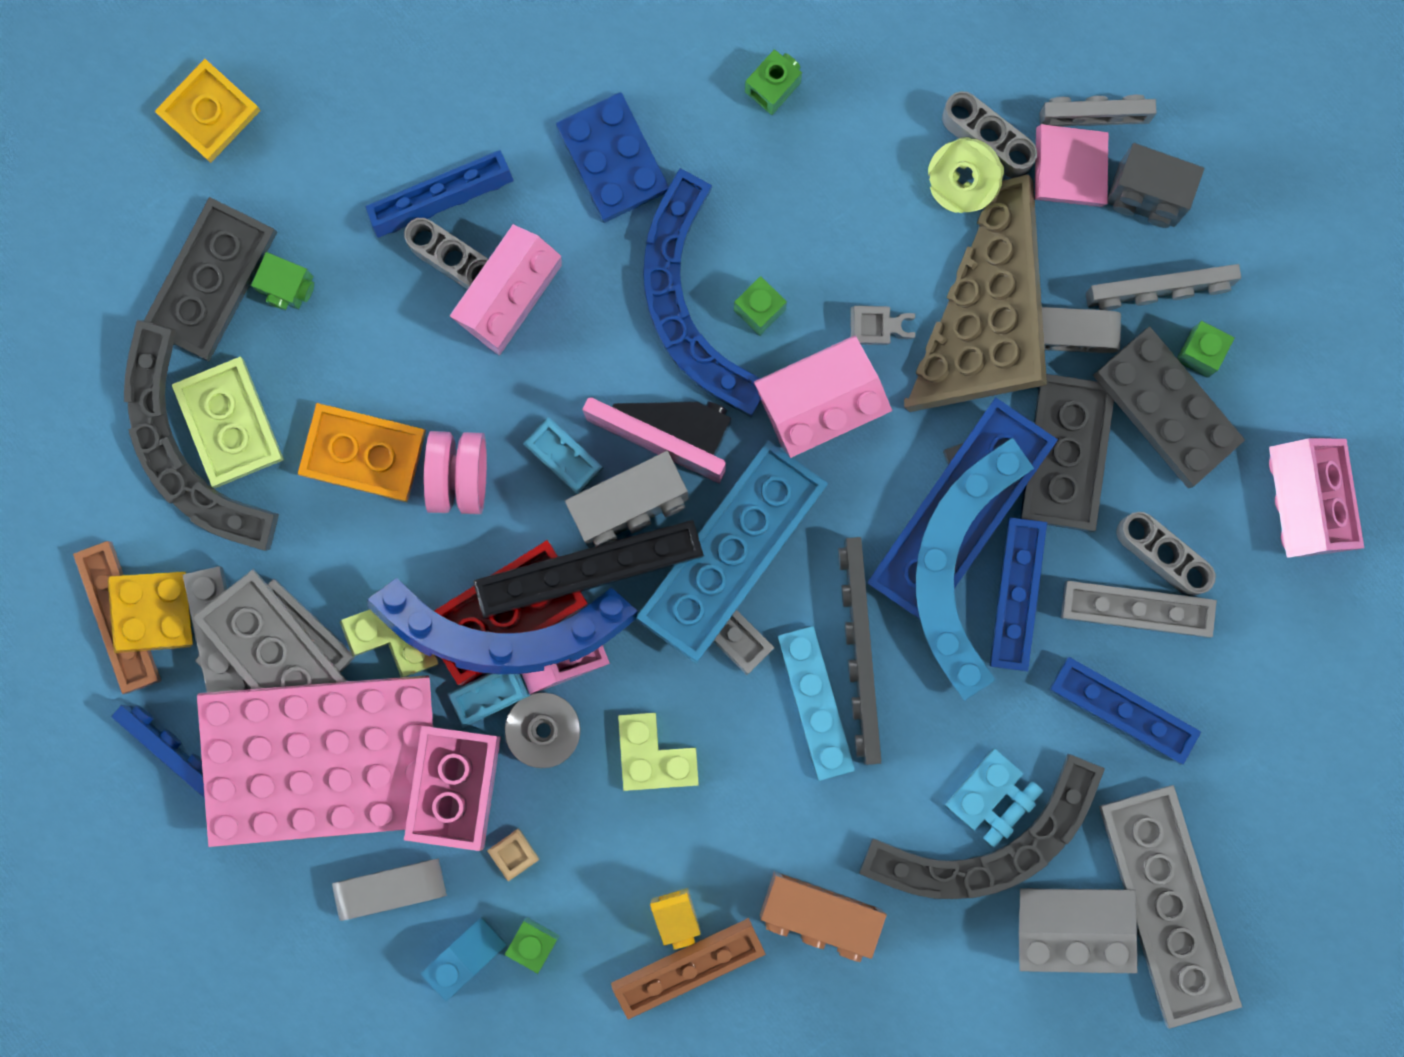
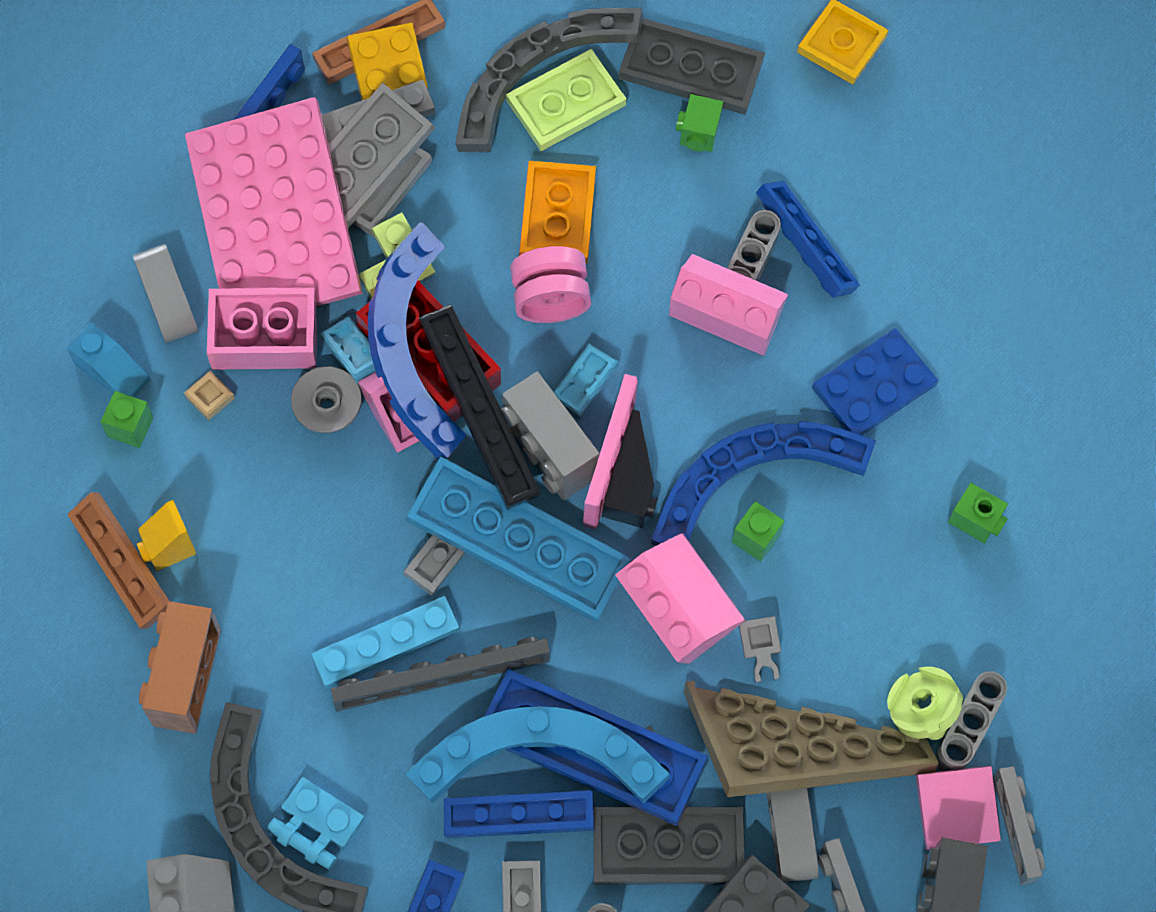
camera: 75 degrees right, 15 degrees down
(645, 764) = (307, 497): yellowish green plate -> none

